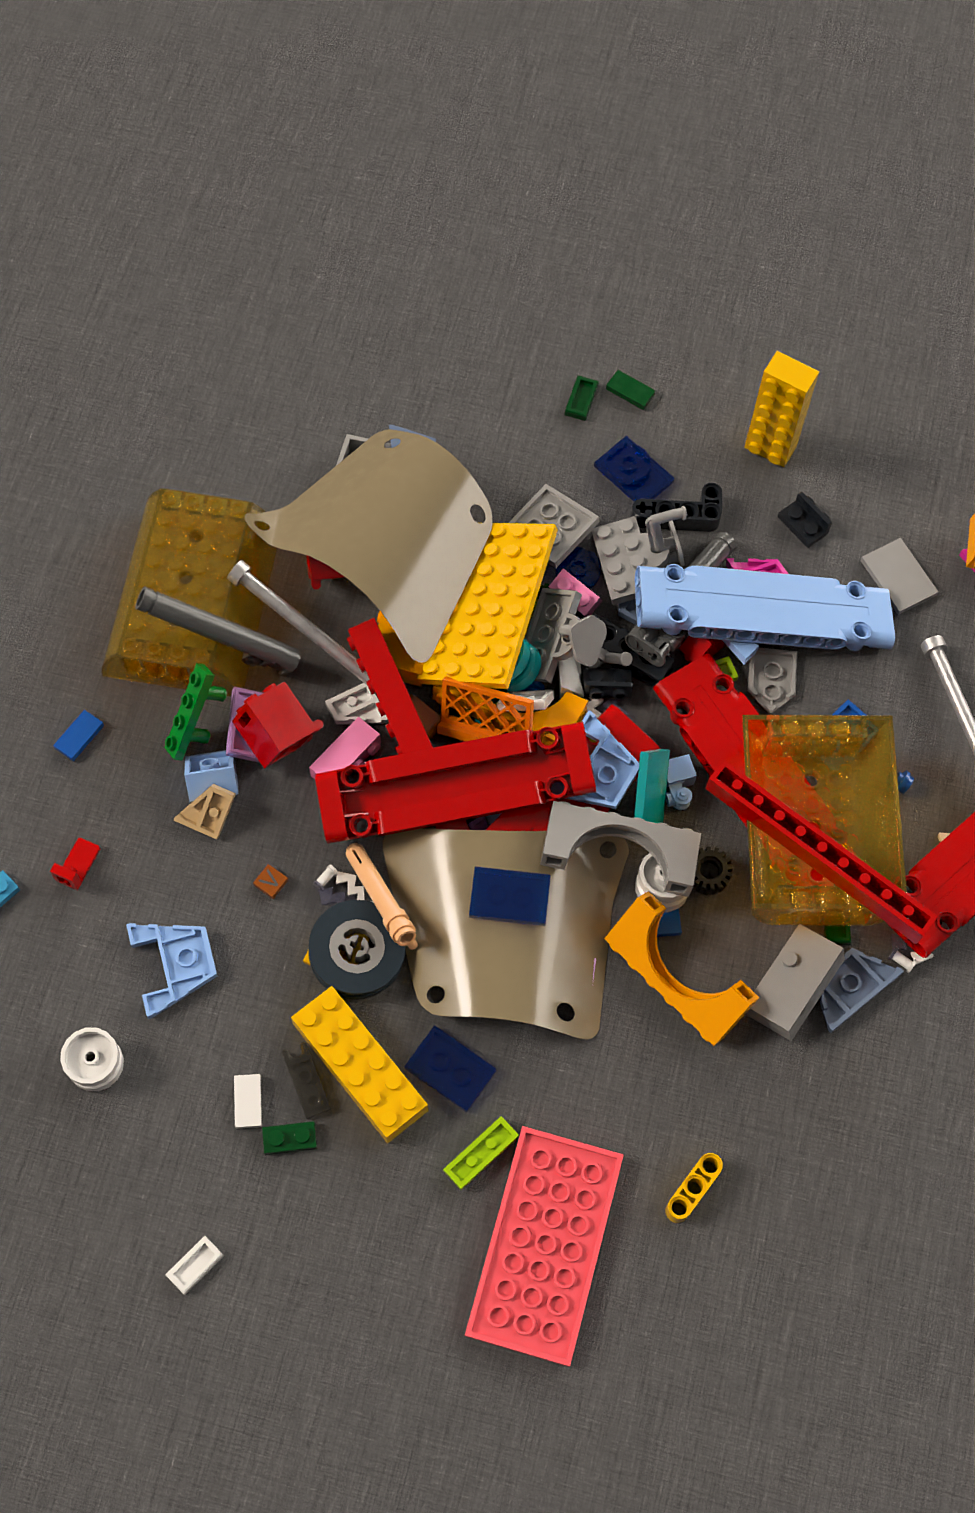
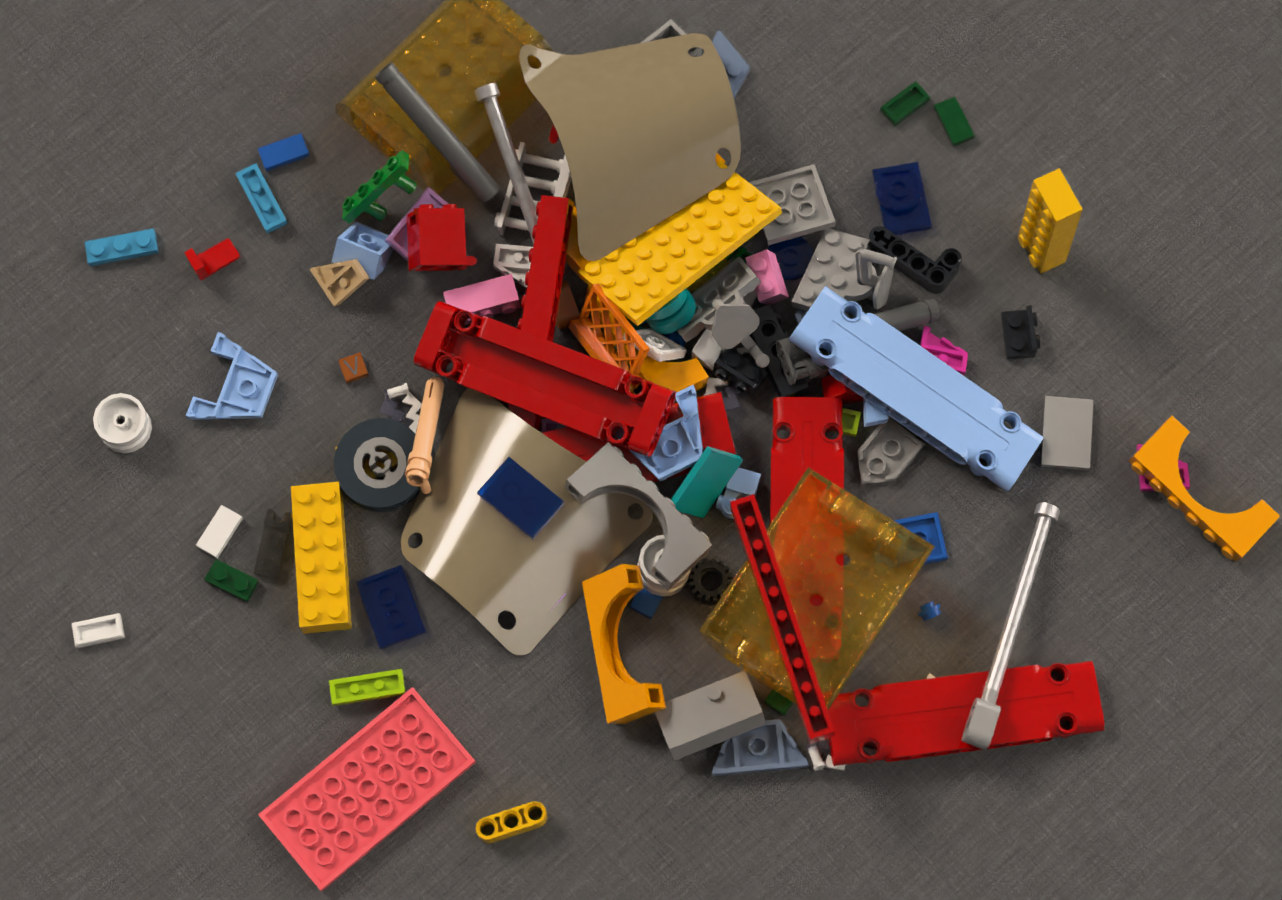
camera: 40 degrees right, 5 degrees up
(86, 785) = (261, 198): none -> dark azure plate
(340, 605) = (558, 188): none -> white fence

